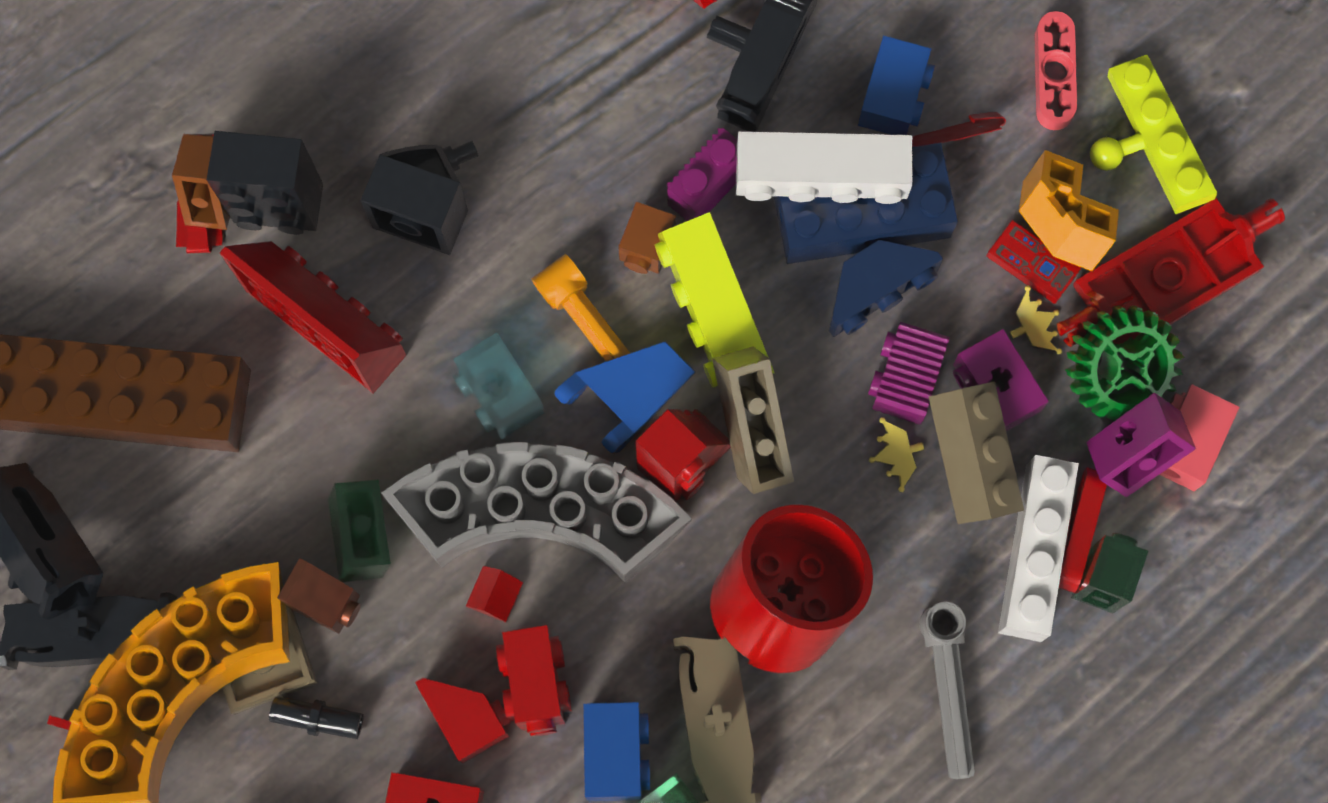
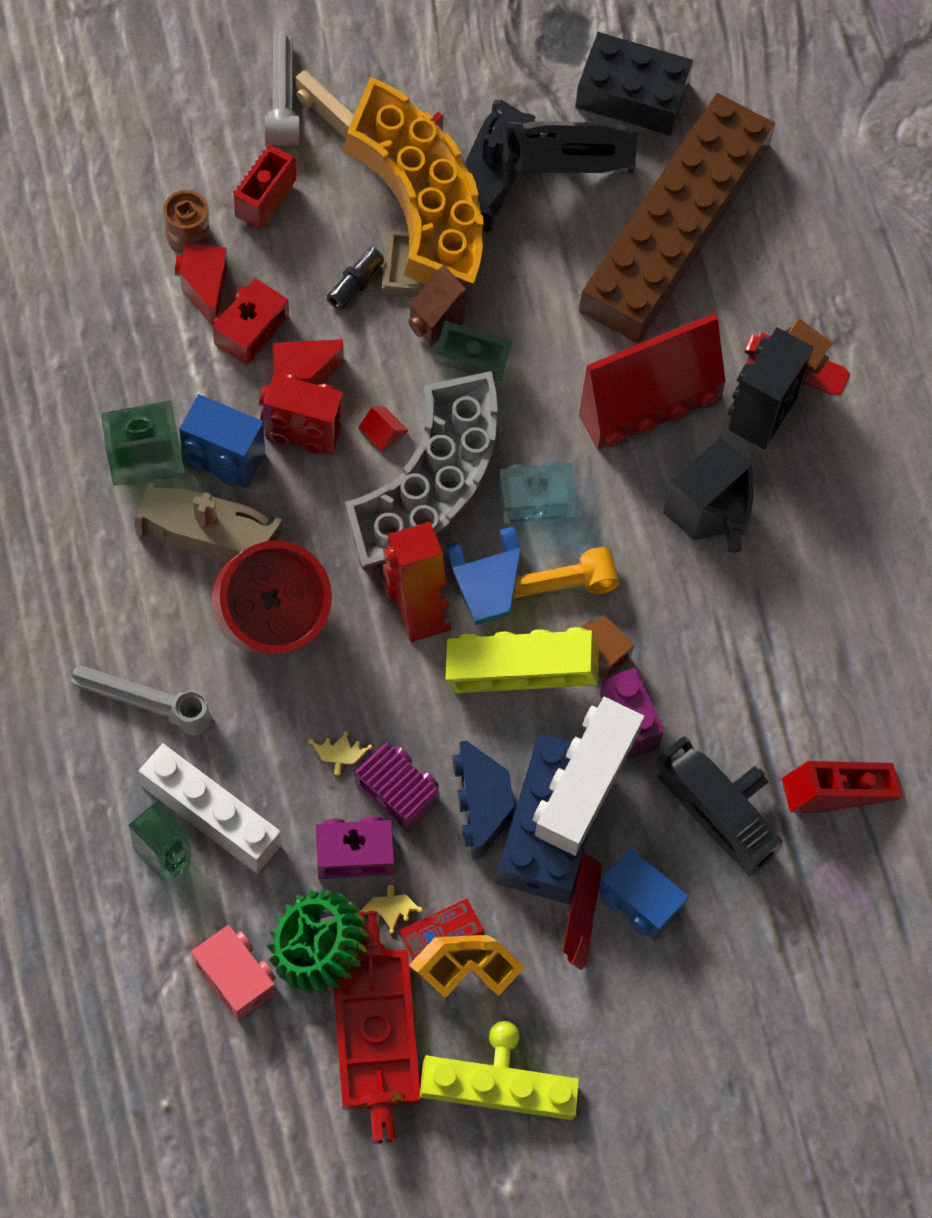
camera: 110 degrees right, 10 degrees down
(753, 419) = (414, 639): dark tan brick -> none
(976, 453) = (305, 791): dark tan brick -> none
(1044, 84) = (628, 1040): coral beam -> none
(1081, 528) = (213, 854): red beam -> none
(1140, 445) = (246, 914): magenta brick -> none

